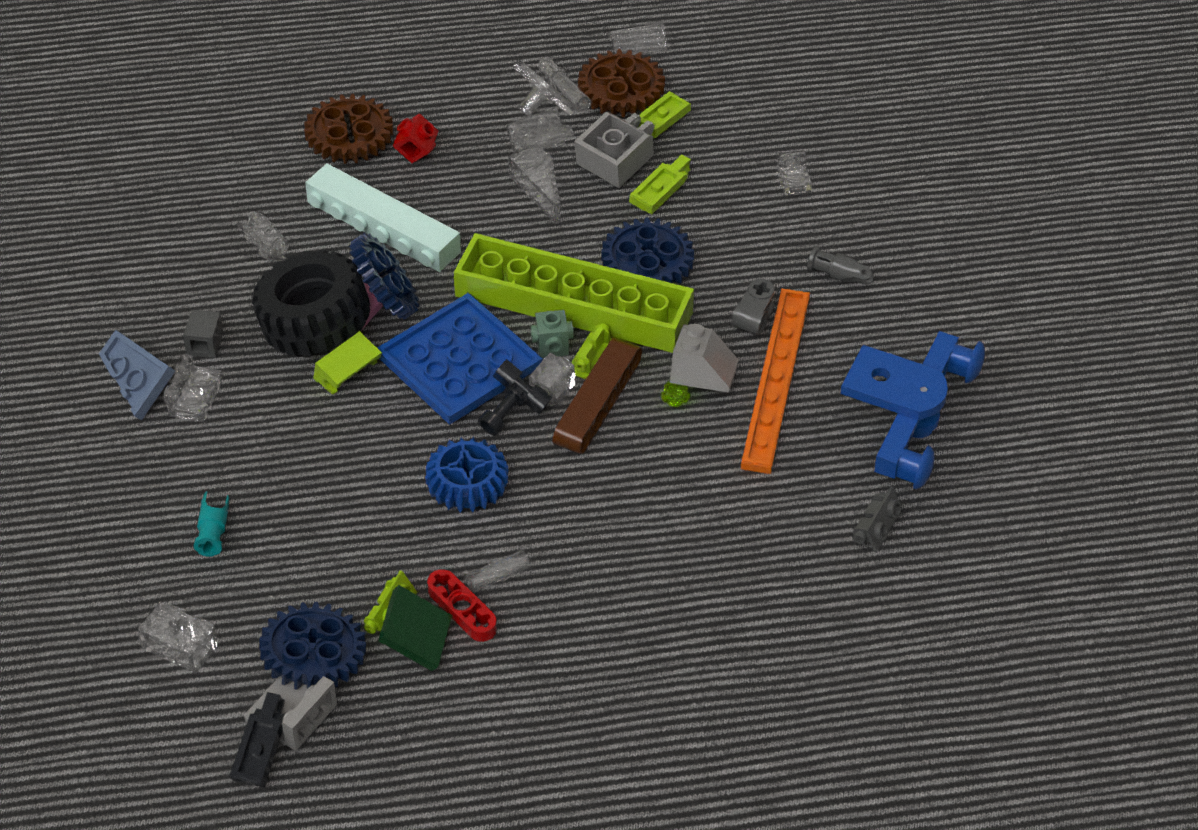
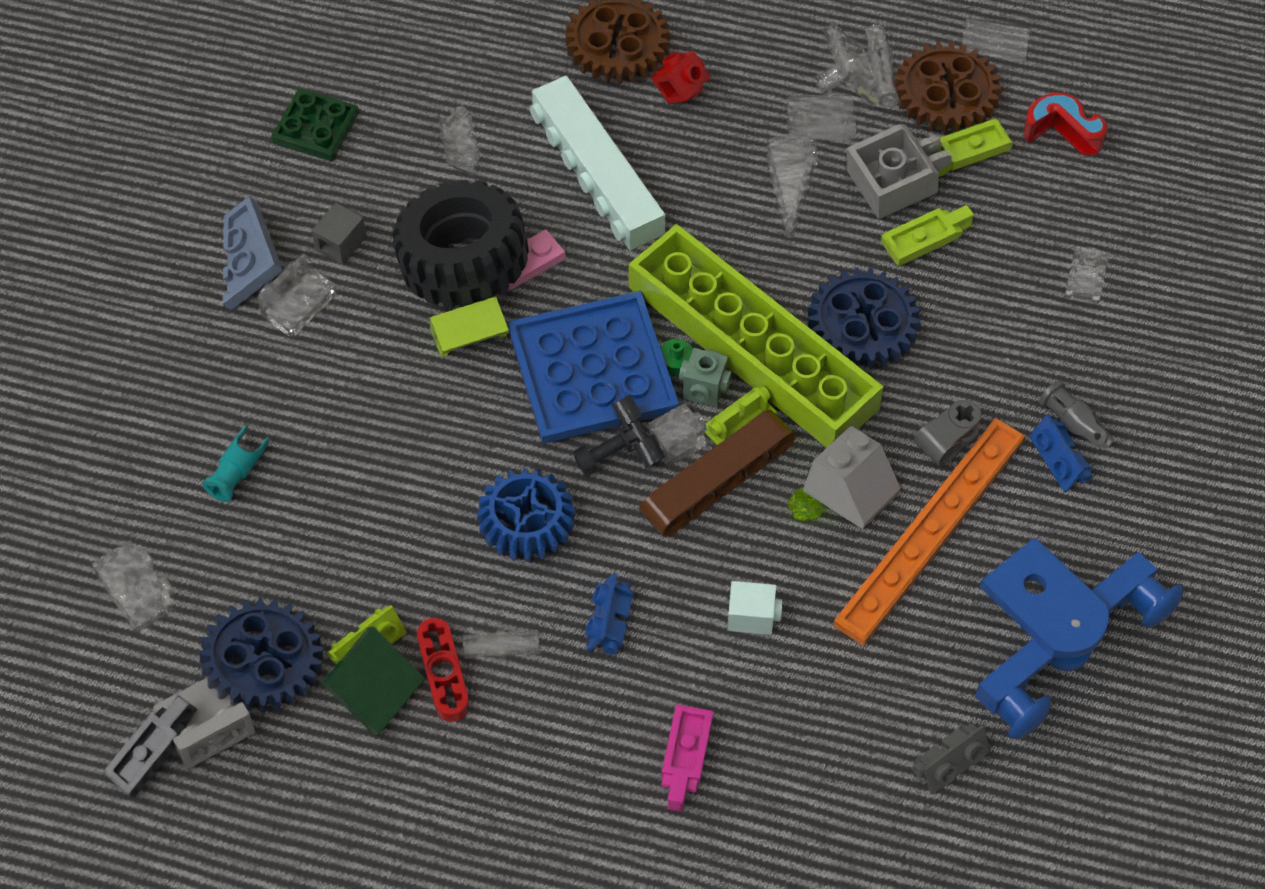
camera: 25 degrees right, 10 degrees up
(136, 266) = (315, 124): none -> dark green tile
(375, 262) = (544, 217): dark blue gear -> none
(521, 327) = (674, 353): none -> green tile
(565, 511) = (610, 601): none -> blue hinge
(677, 475) = (753, 608): none -> light aqua brick
(682, 591) = (685, 753): none -> dark pink hinge
(722, 75) = (1068, 118): none -> red animal
(841, 295) = (1056, 450): none -> blue hinge

